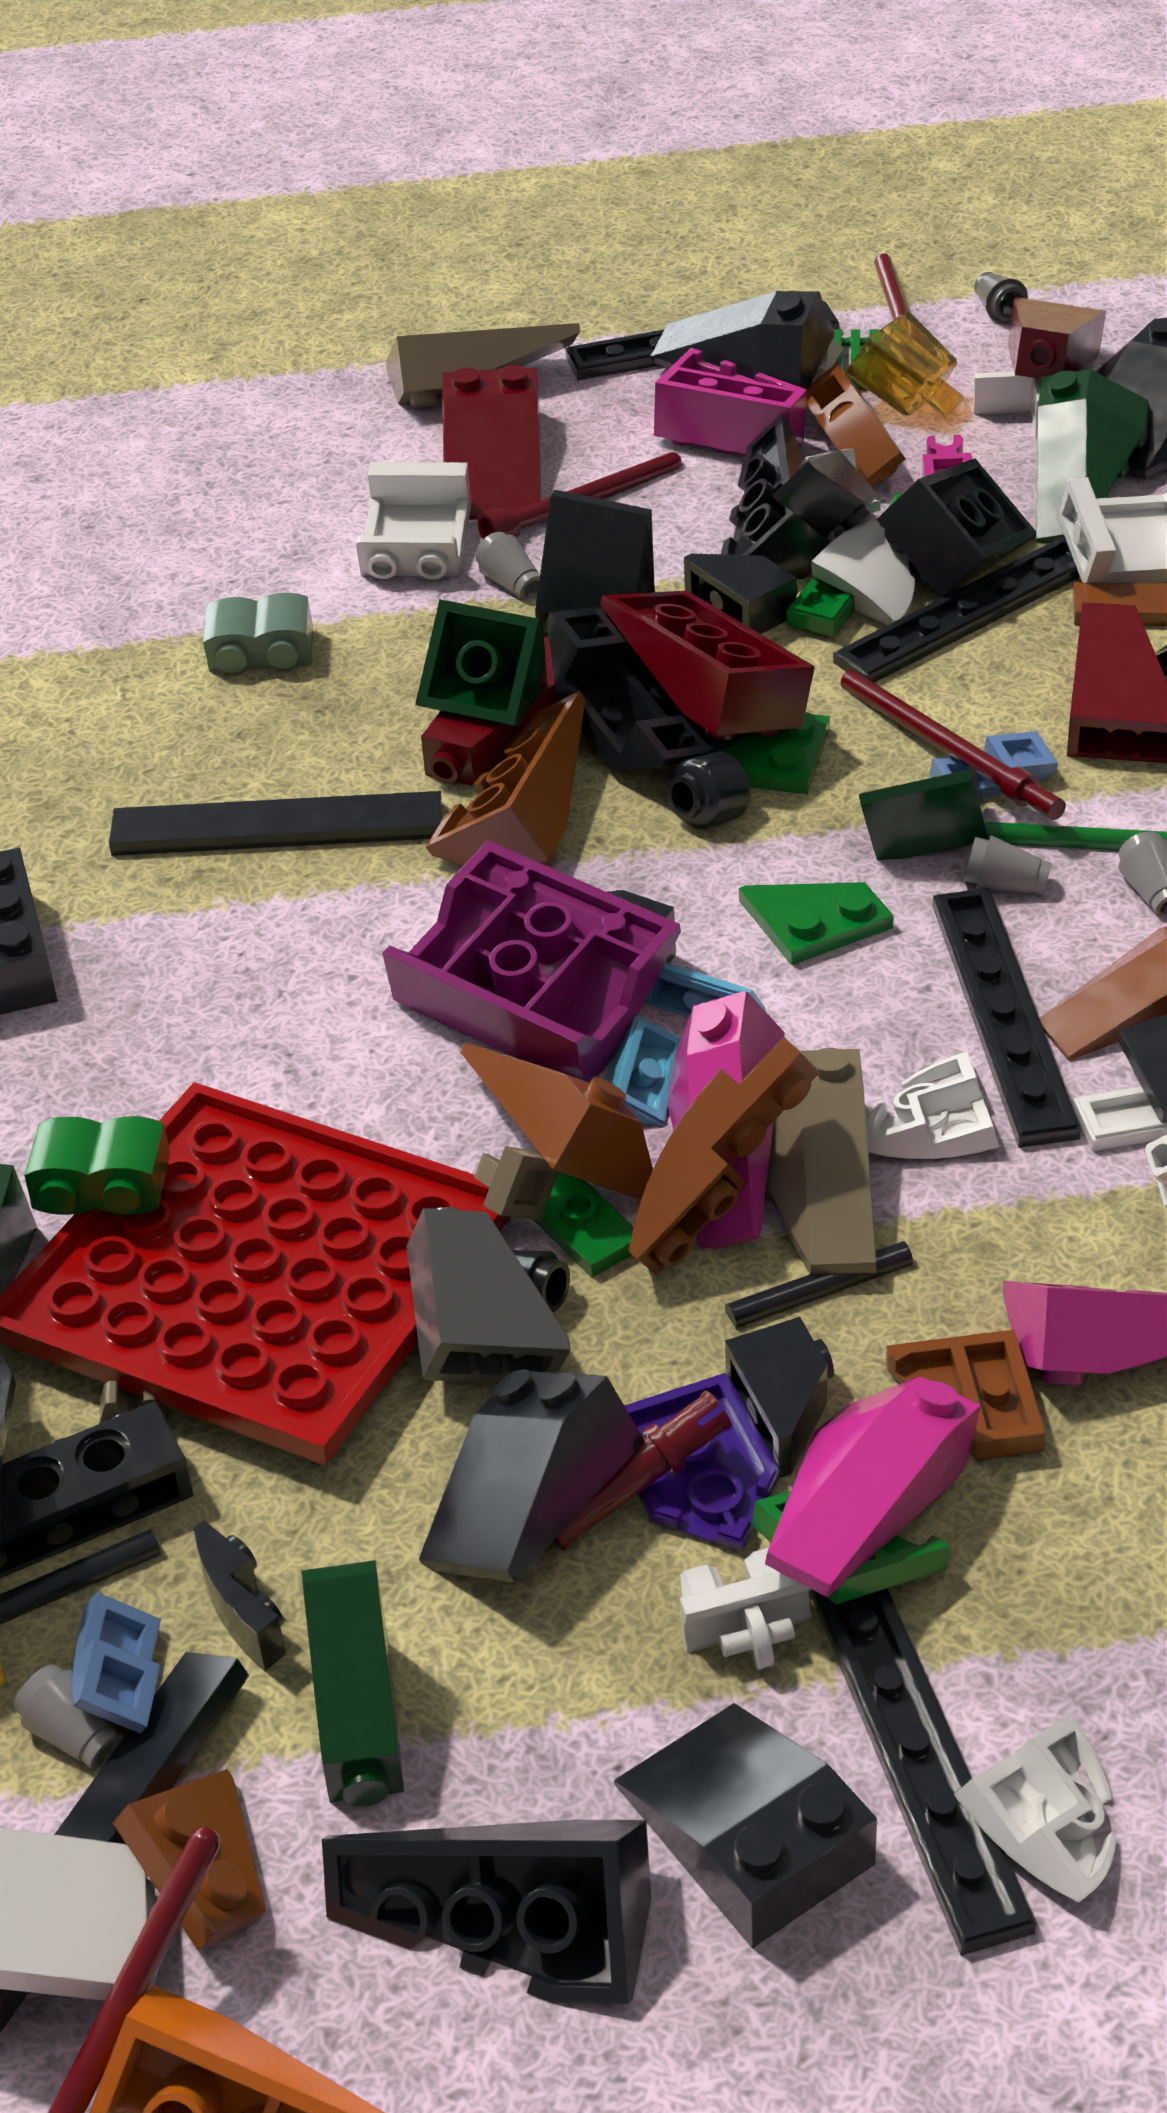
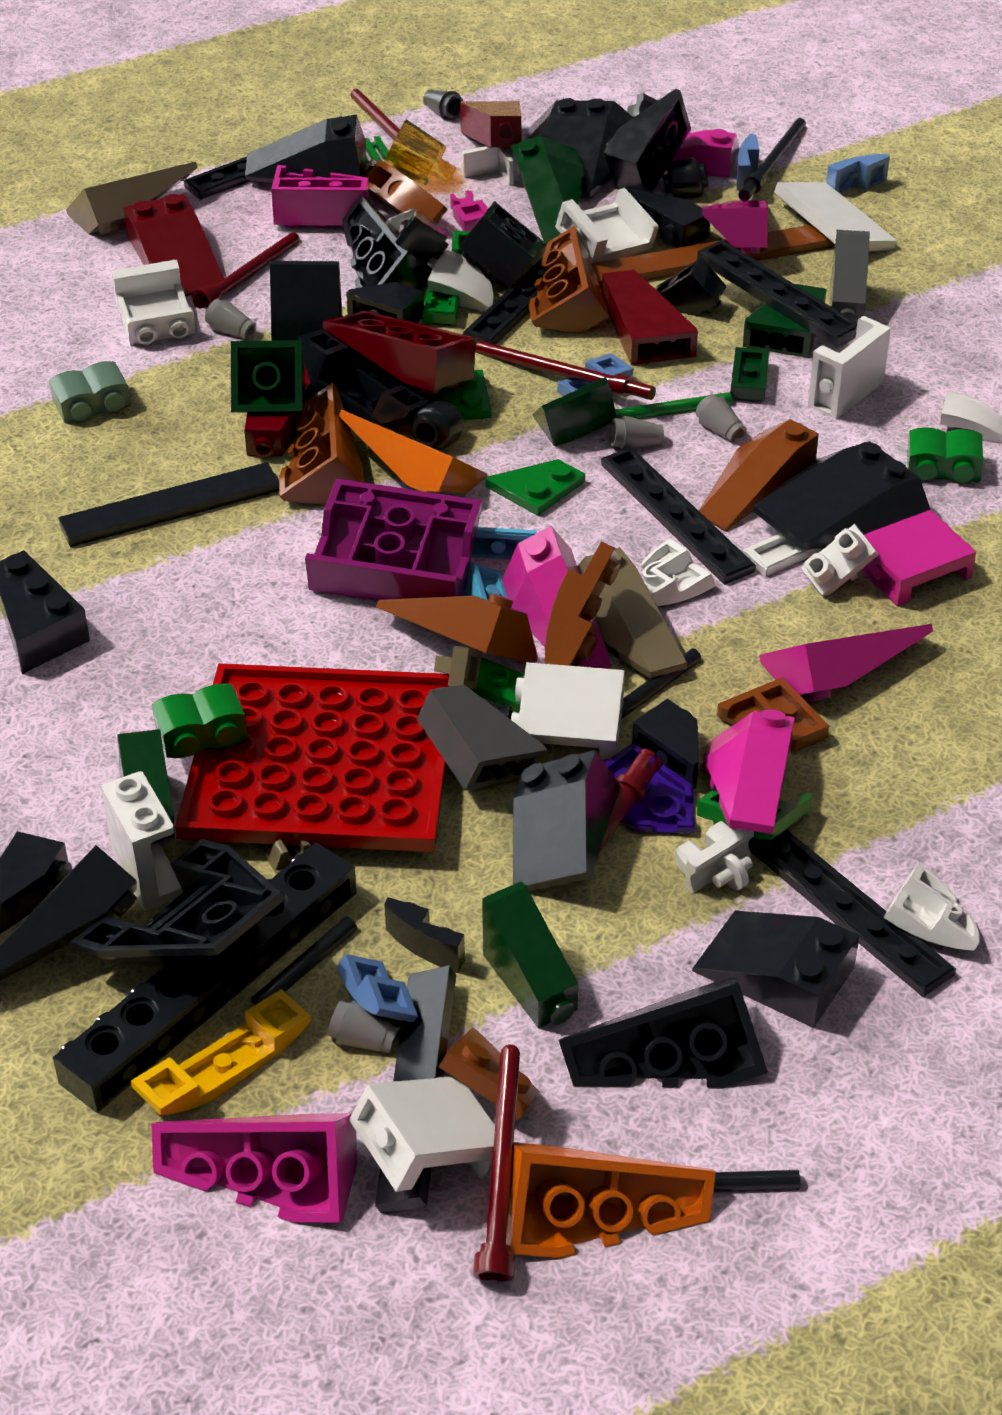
camera: 25 degrees left, 0 degrees up
(644, 840) = (415, 462): none -> orange wedge
(650, 1291) = (571, 705): none -> white panel
(1027, 619) = (568, 290): none -> dark orange wedge

